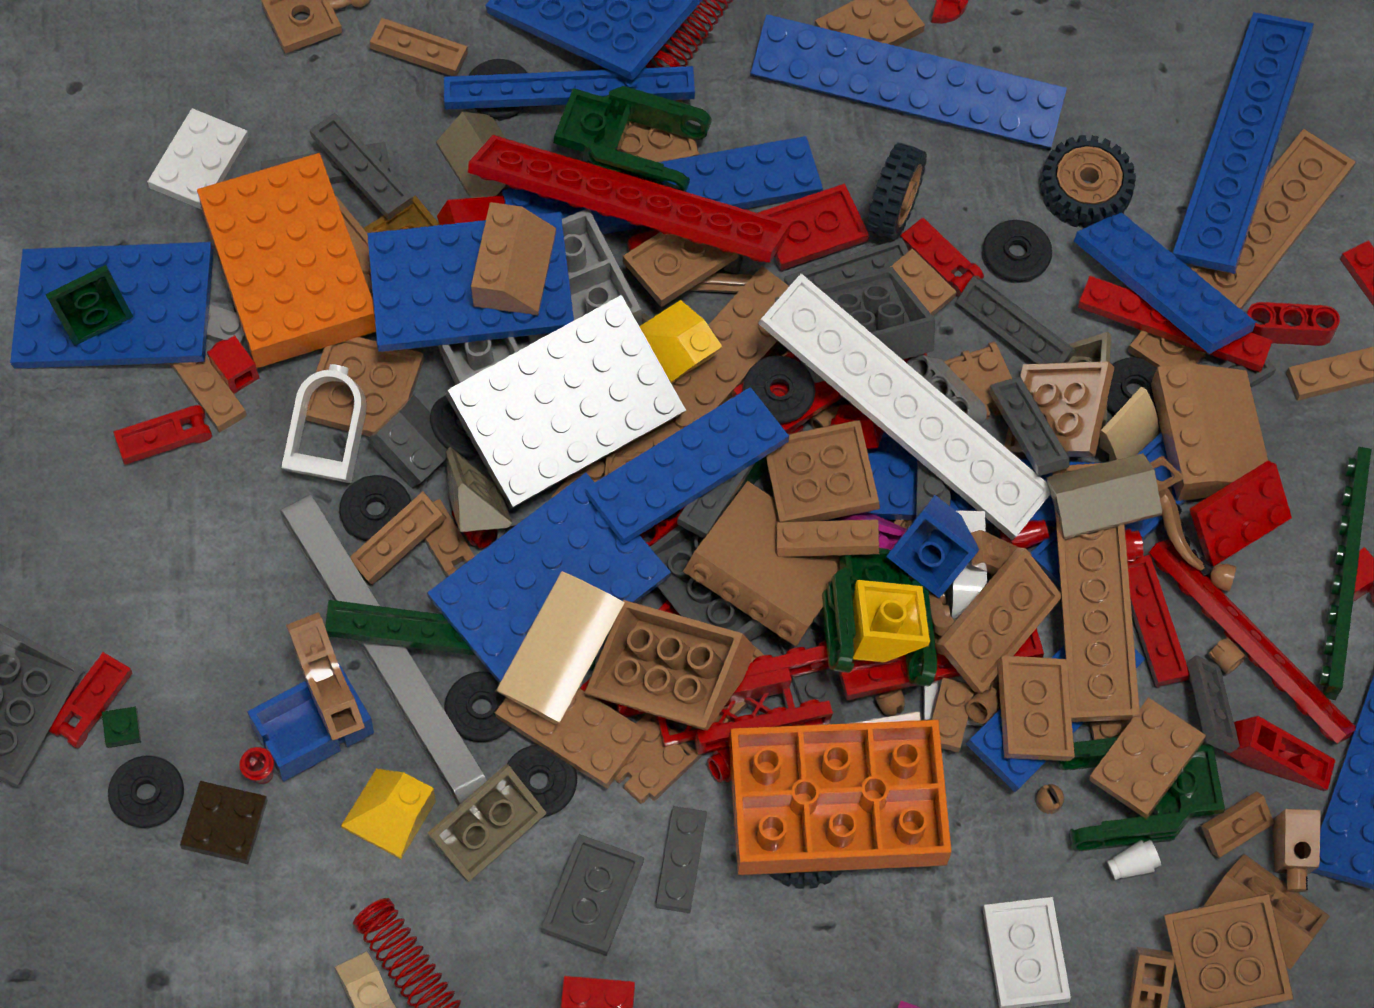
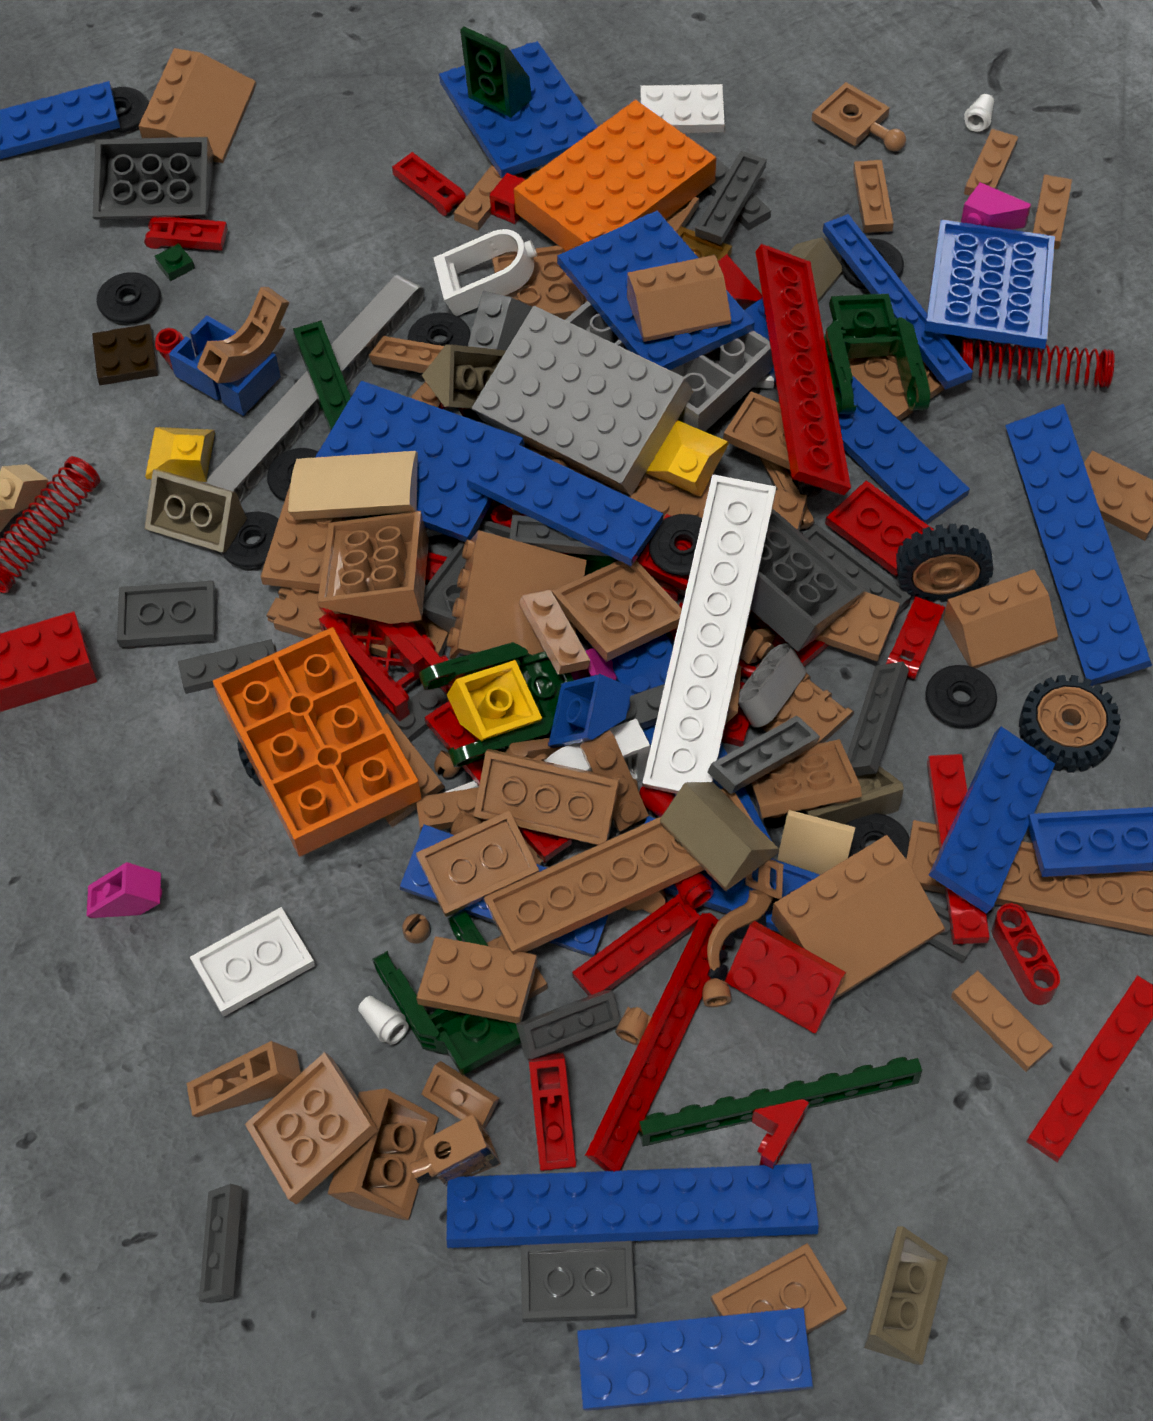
camera: 70 degrees right, 5 degrees down
(960, 180) = (1001, 619): none -> medium nougat slope

